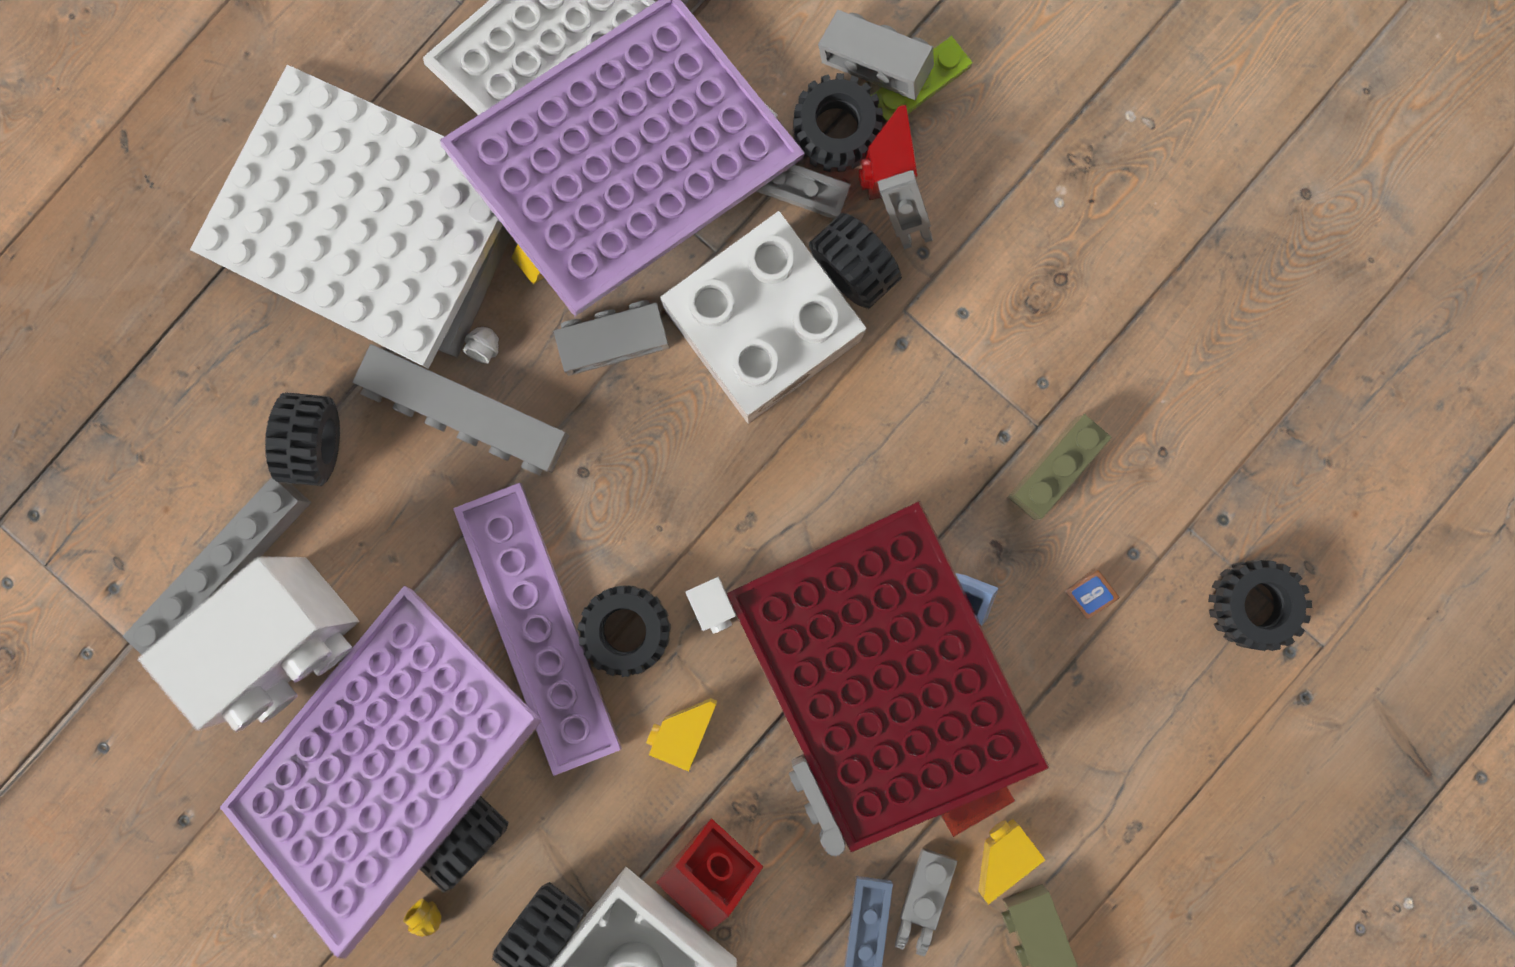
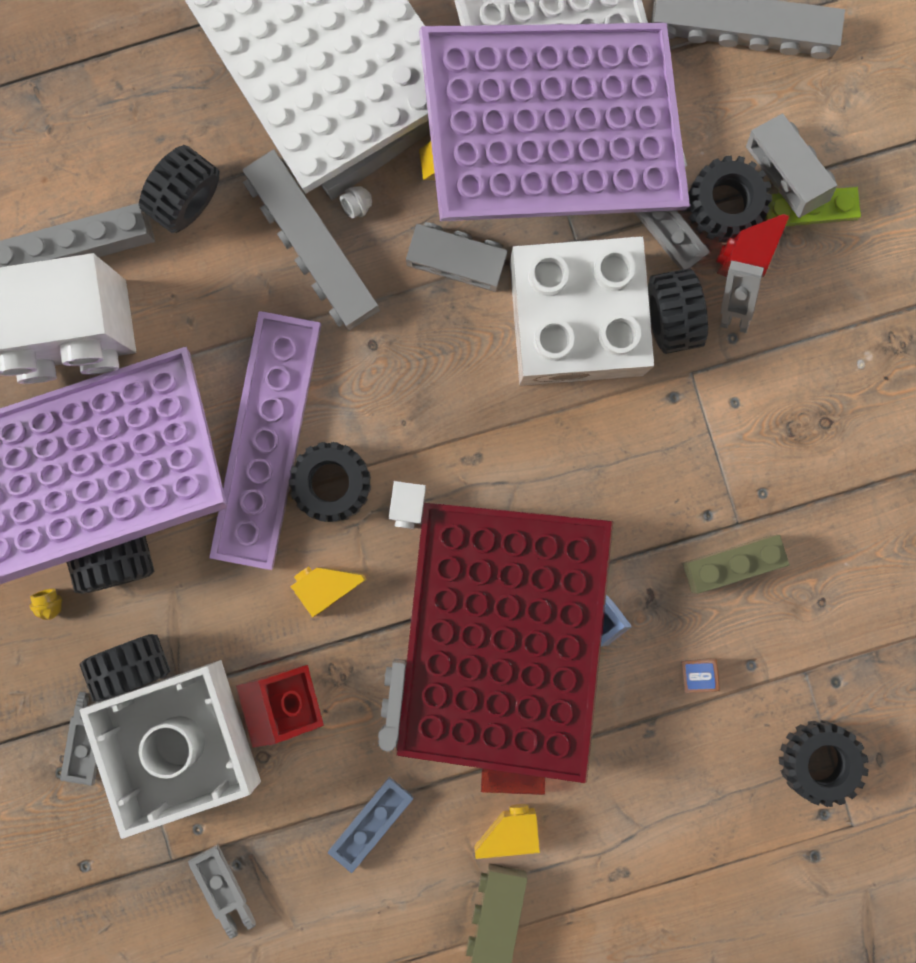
camera: 30 degrees right, 0 degrees up
(925, 898) = (431, 825): light grey hinge -> none

